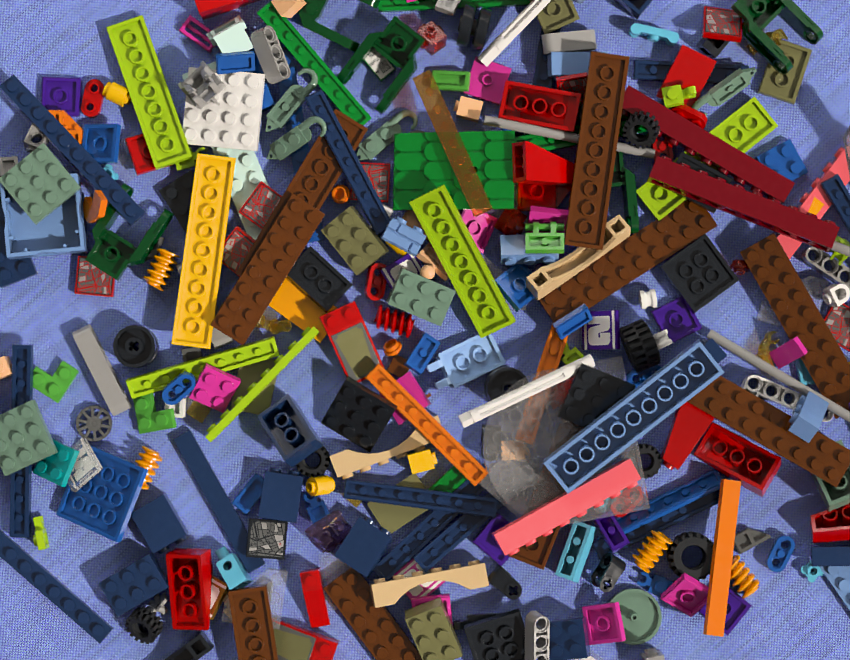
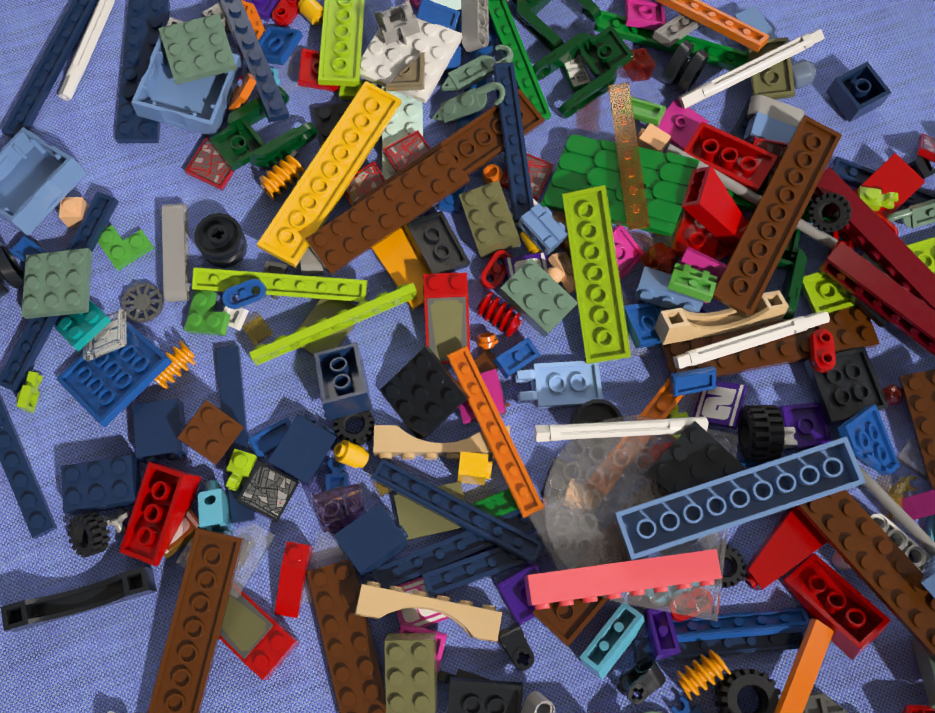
camera: 20 degrees right, 15 degrees down
(203, 513) = (210, 432): none -> reddish brown brick
(214, 388) = (282, 310): dark pink plate -> none
(236, 136) = (411, 77): none -> dark tan tile
(237, 527) = (240, 466): none -> lime plate
(274, 326) = (371, 274): clear yellow piece -> none
(384, 136) = (555, 139): sand green plate -> none
(608, 268) = (750, 339): none -> white piece
(647, 299) = (781, 391): white wheel -> none
(654, 34) = (865, 138): medium azure plate -> none
(669, 254) = (821, 349): none -> red plate
(728, 318) = (870, 440): none -> blue plate

